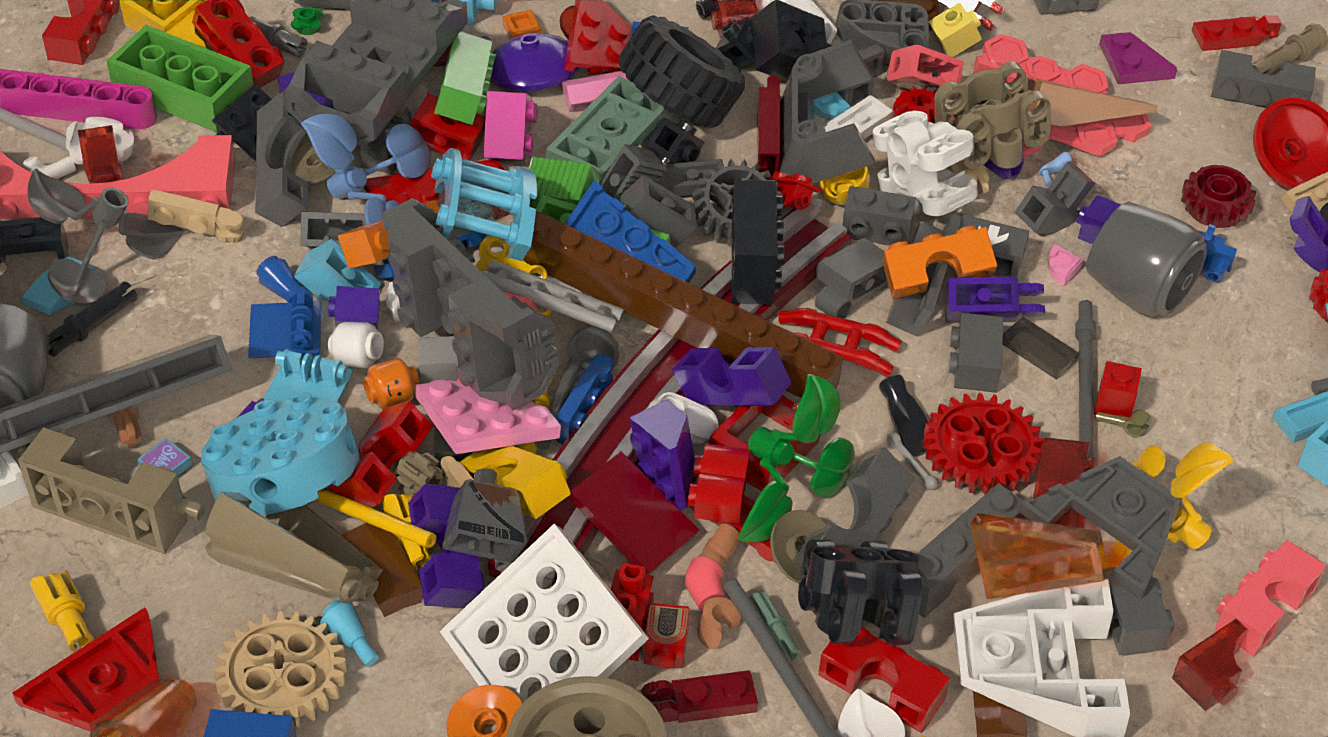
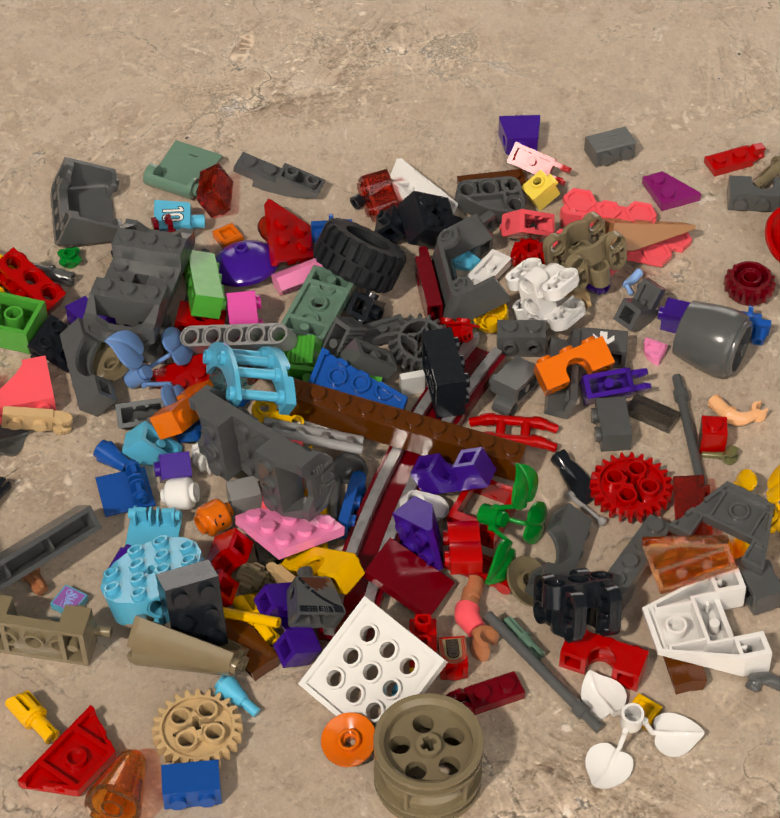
camera: 10 degrees left, 0 degrees up
(312, 490) = (193, 602): none -> black brick
(492, 149) = (230, 332): none -> light grey beam
(712, 251) = (412, 382): none -> white tile
(1159, 374) = (736, 417): none -> light nougat piece

